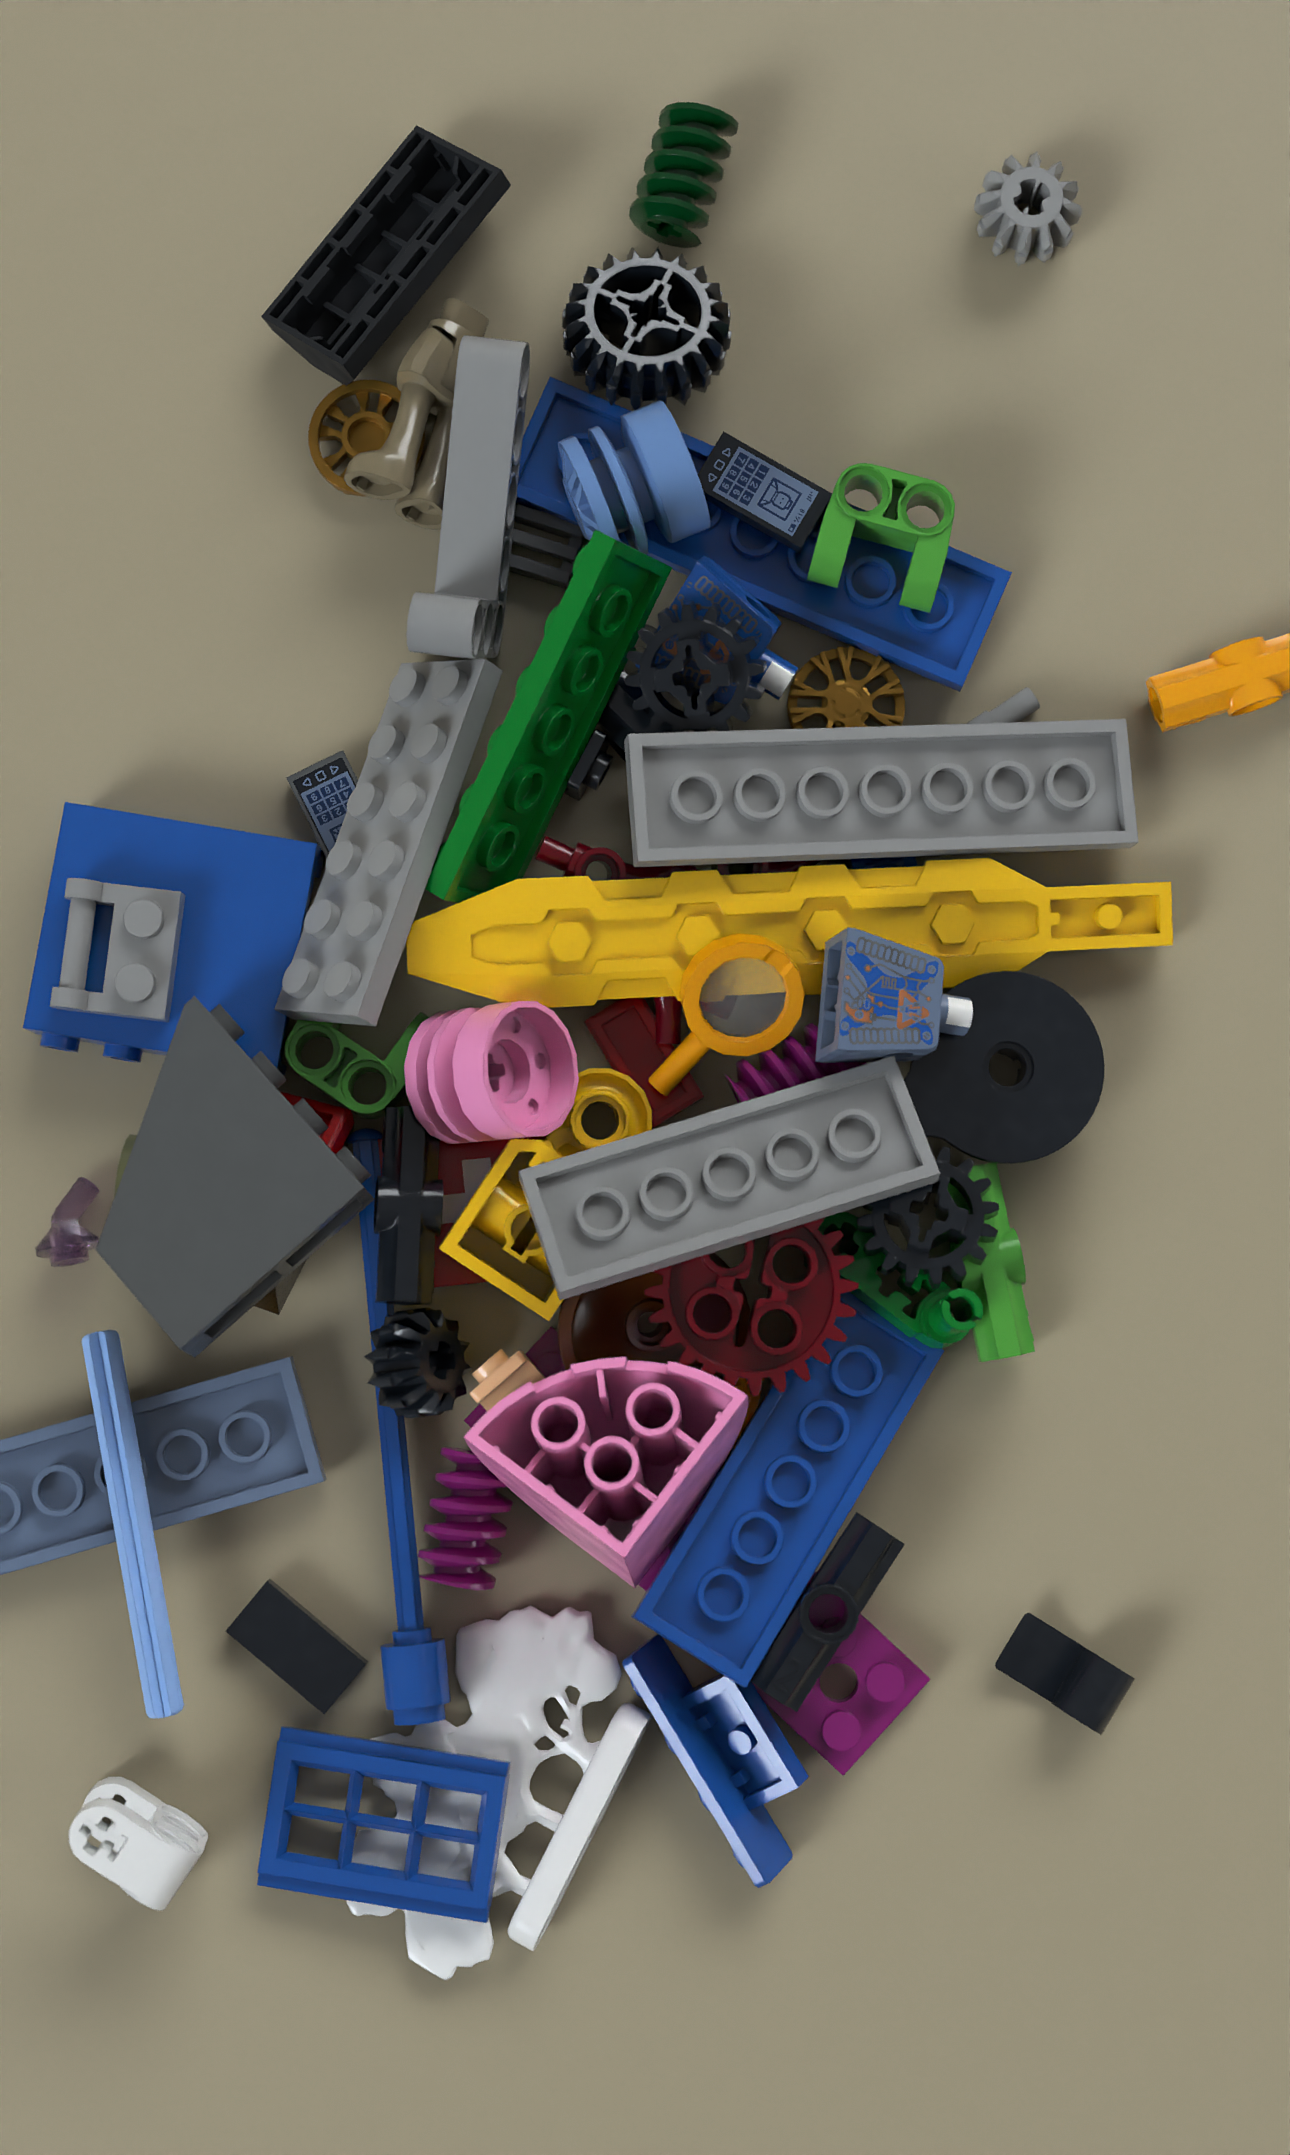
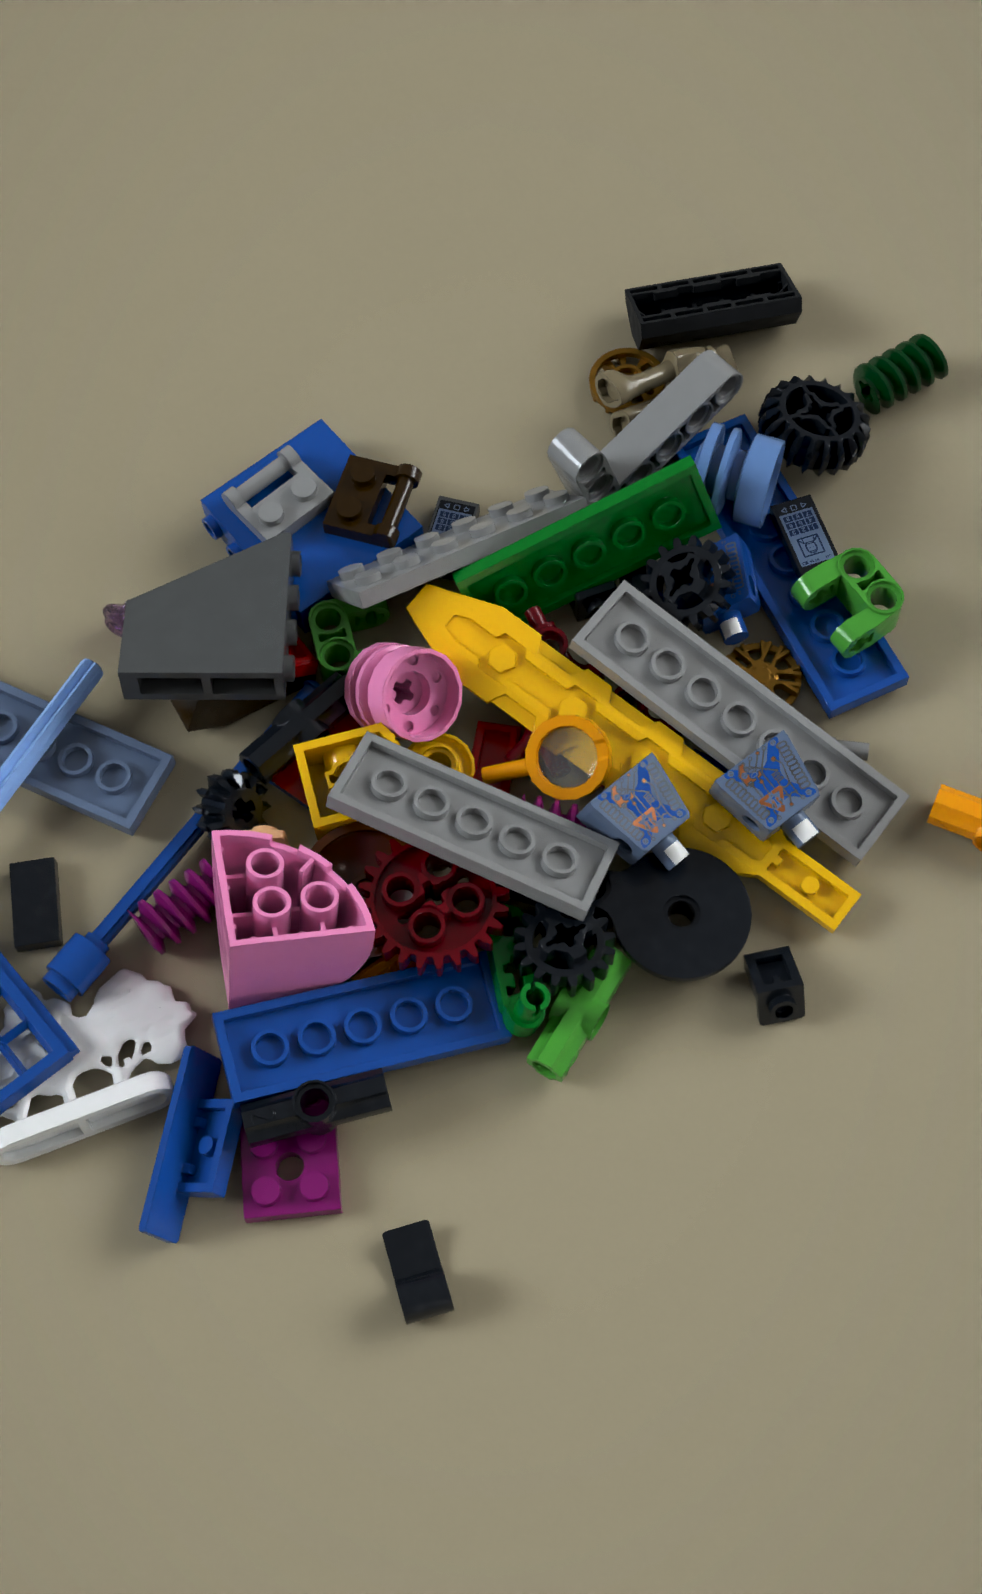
camera: 45 degrees right, 20 degrees down
(212, 869) = (360, 495): none -> dark brown plate
(998, 854) = (770, 792): none -> torso
(1160, 1056) = (775, 985): none -> black bracket

